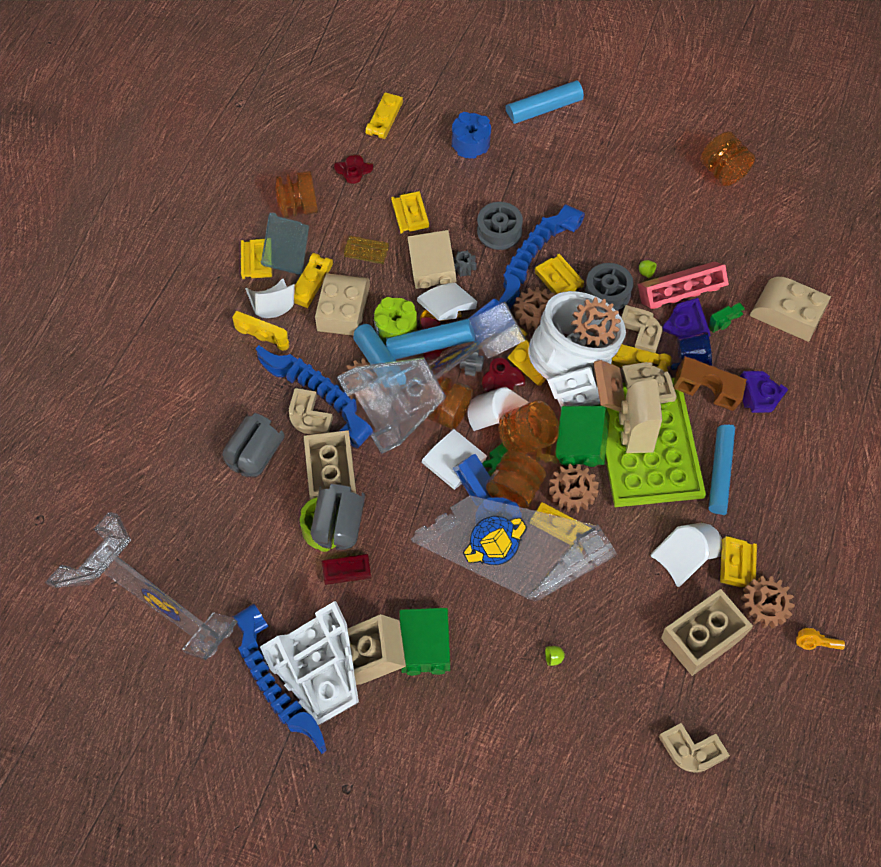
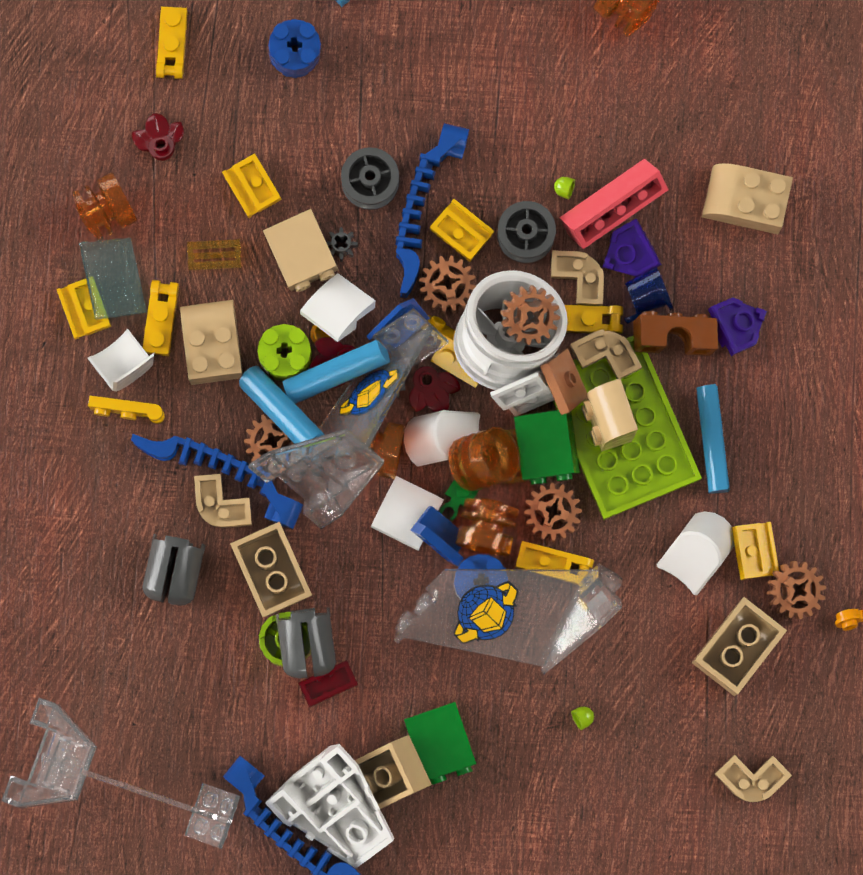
camera: 20 degrees left, 20 degrees up
(723, 318) = (671, 237): green plate -> none

